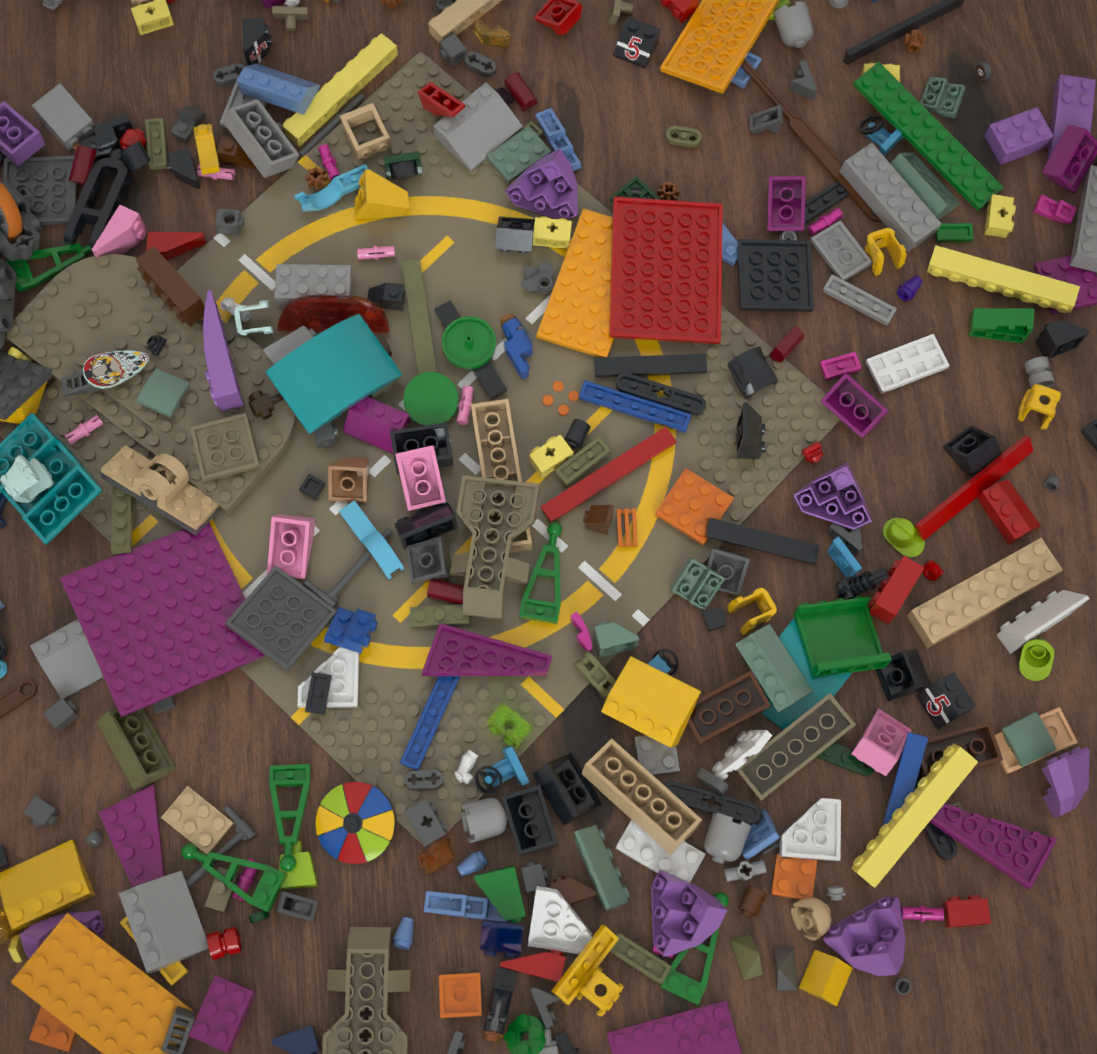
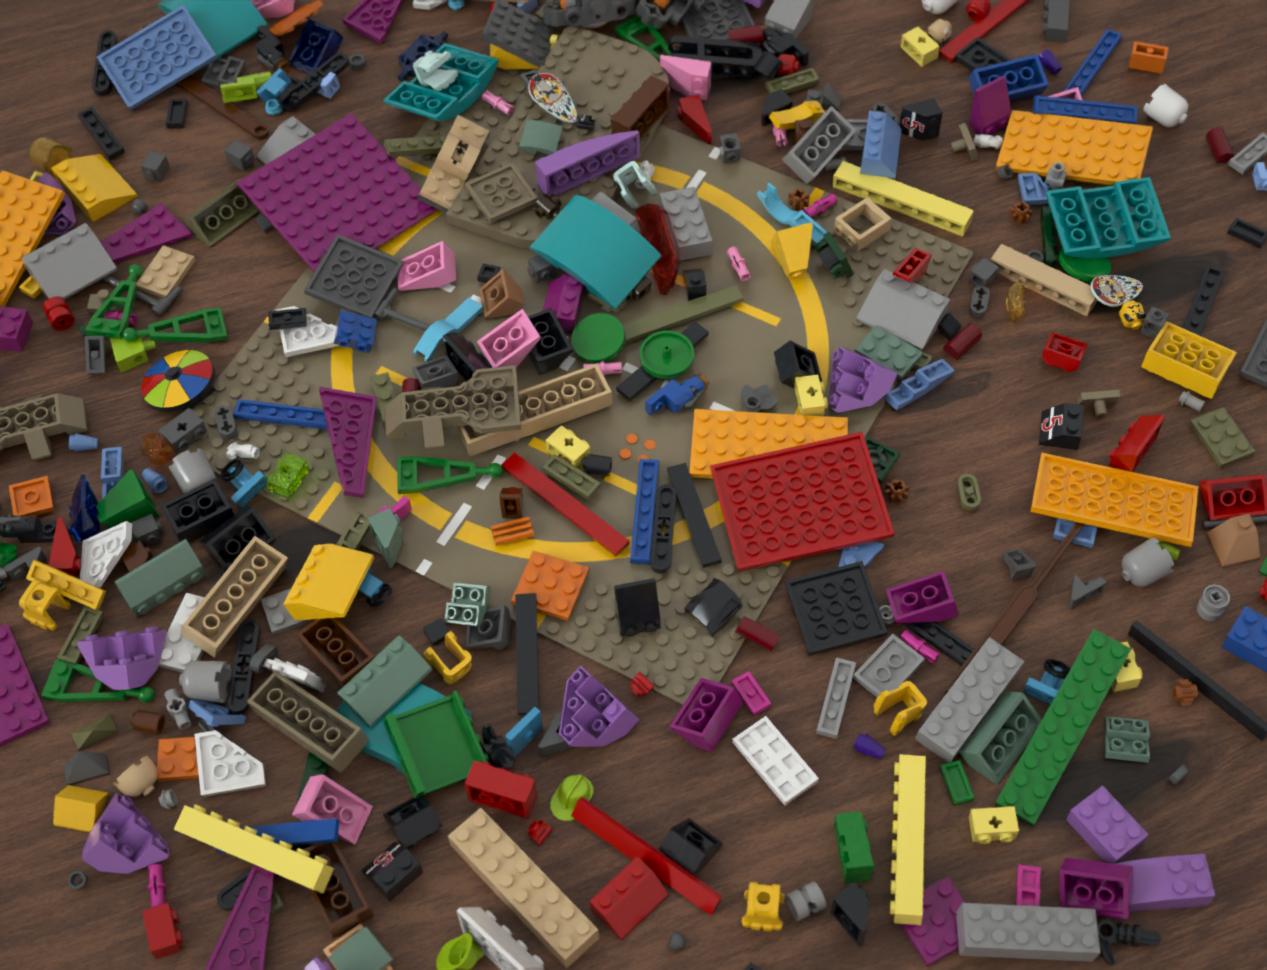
camera: 80 degrees right, 15 degrees down
(332, 124) = (892, 213): dark grey piece -> none

